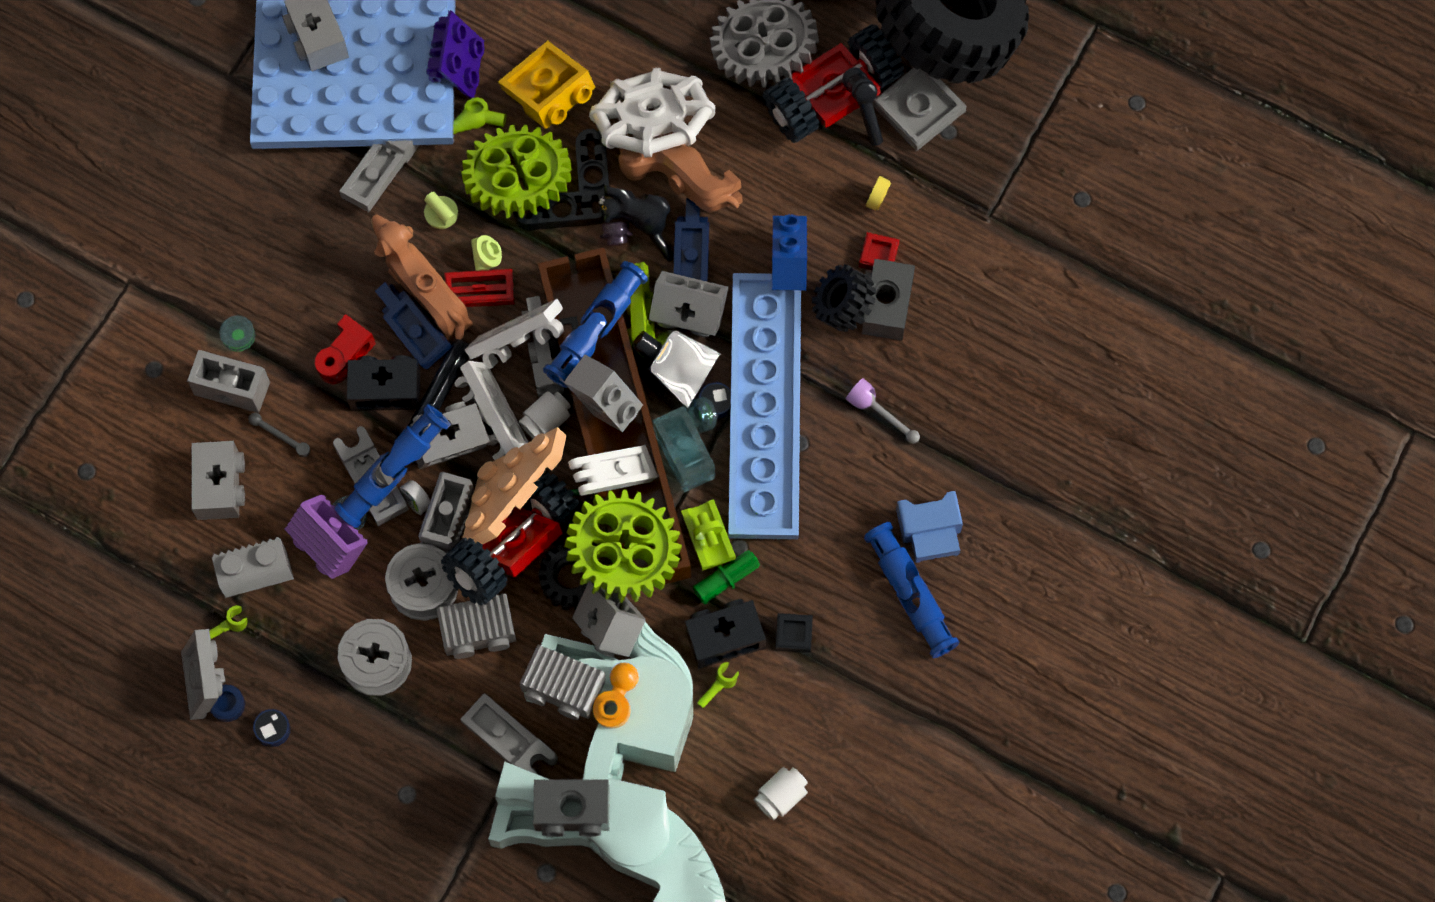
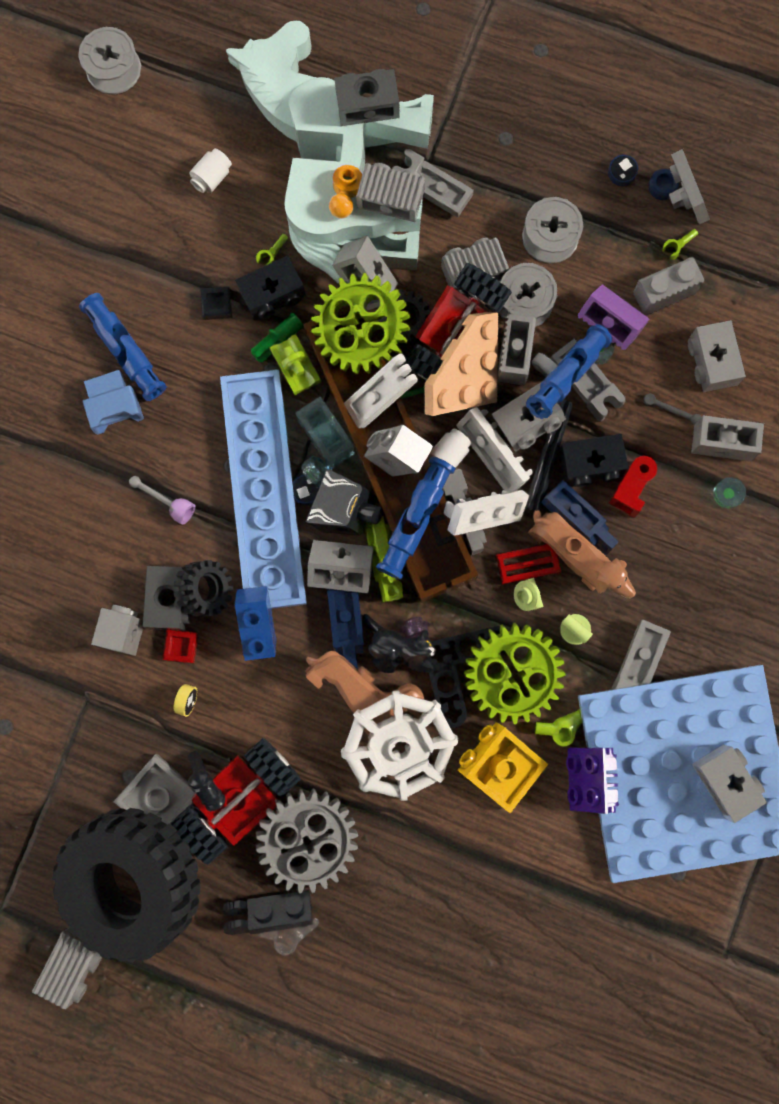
camera: 175 degrees right, 10 degrees up
(941, 263) = (118, 630): none -> light grey brick

